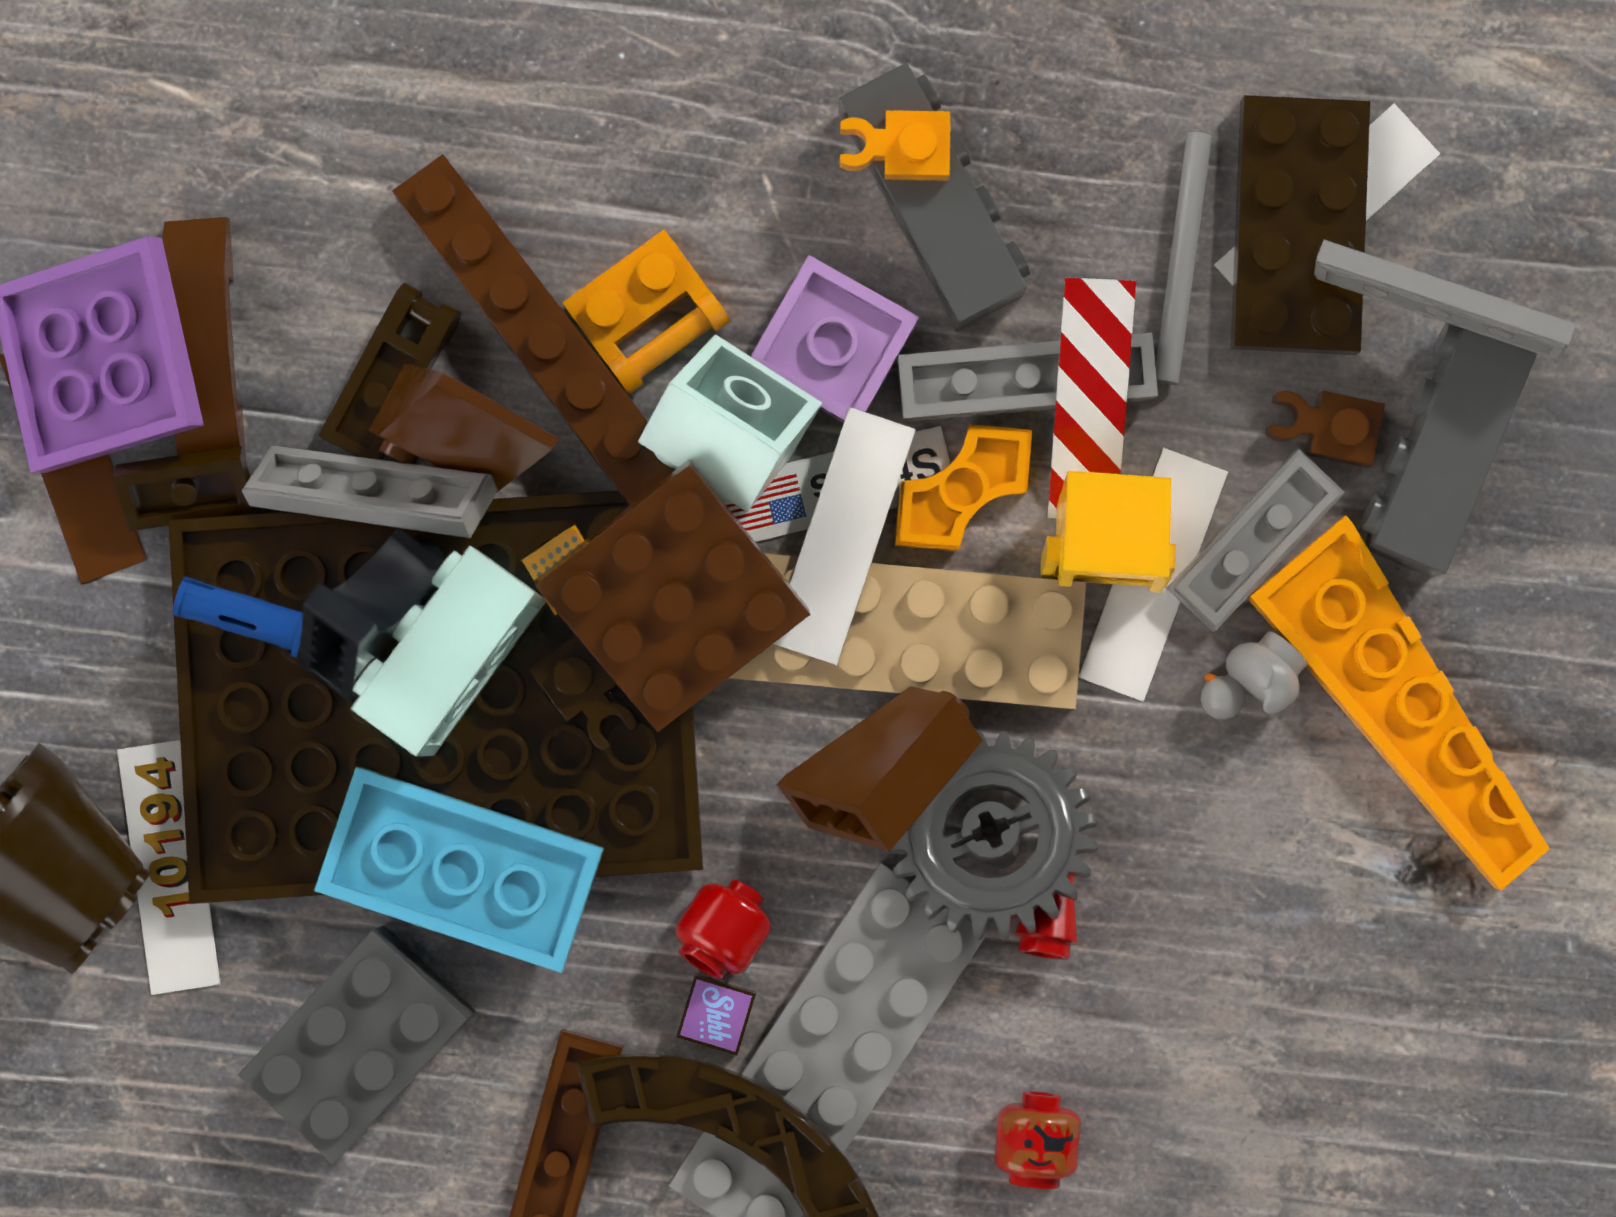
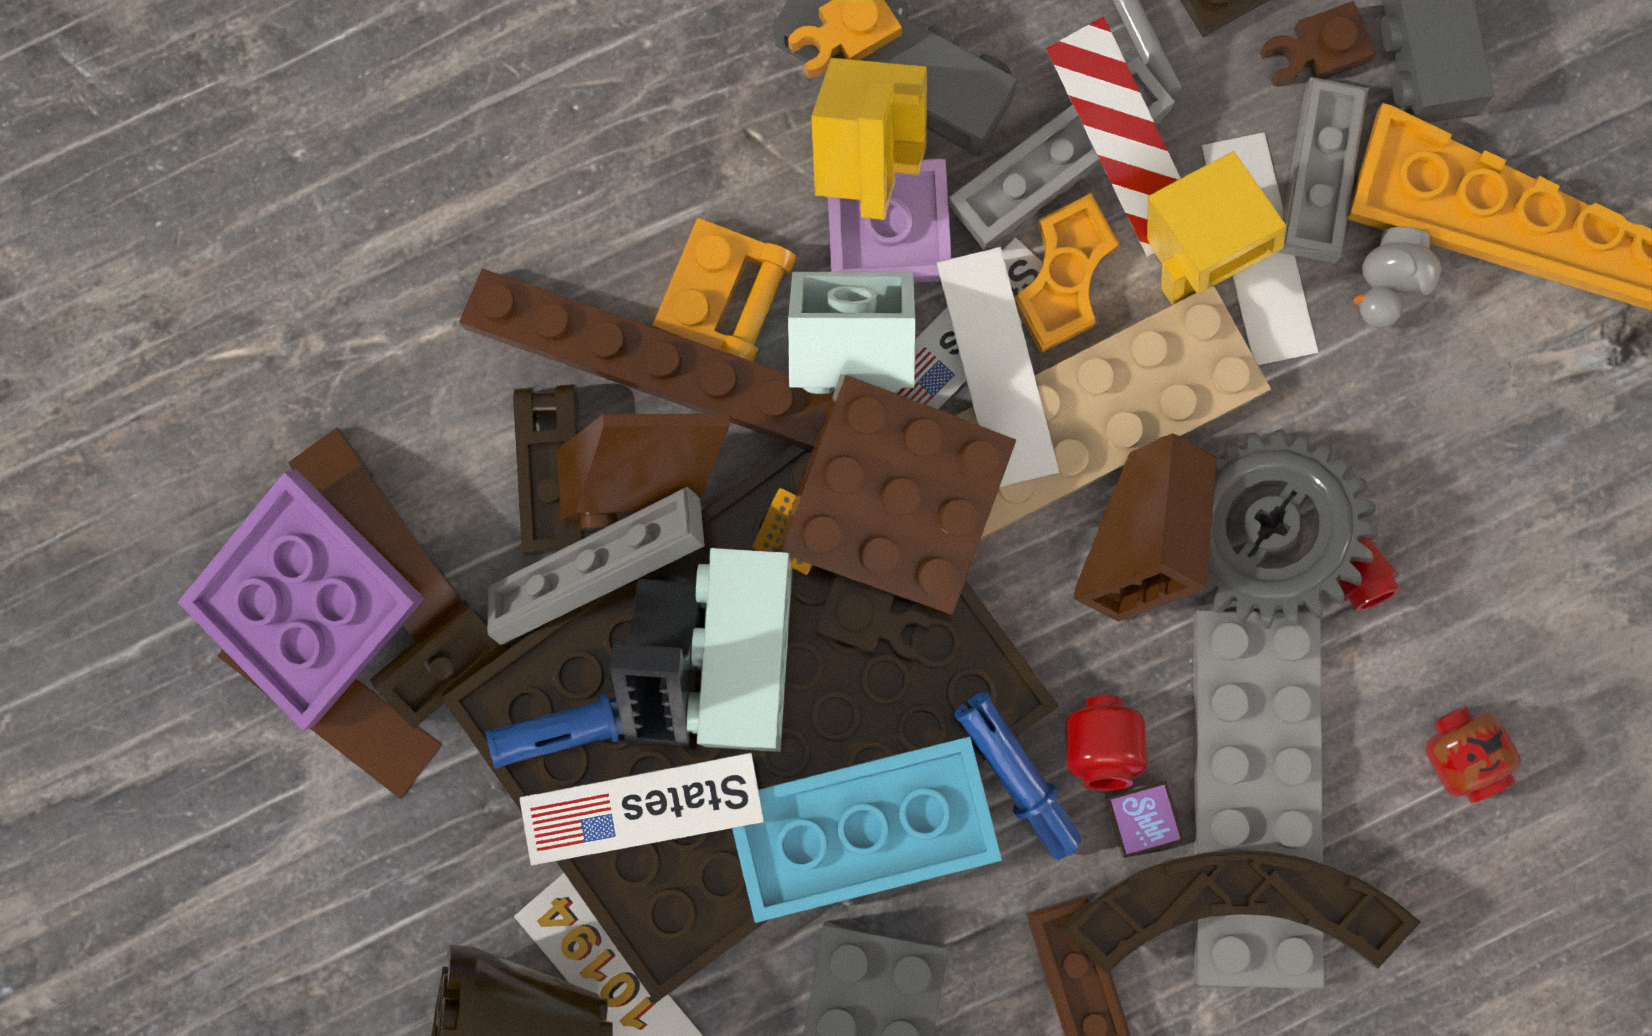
camera: 25 degrees left, 5 degrees down
(279, 730) = (641, 809): none -> white sticker
(627, 911) = (1031, 794): none -> blue axle
(858, 249) = (868, 129): none -> yellow plate

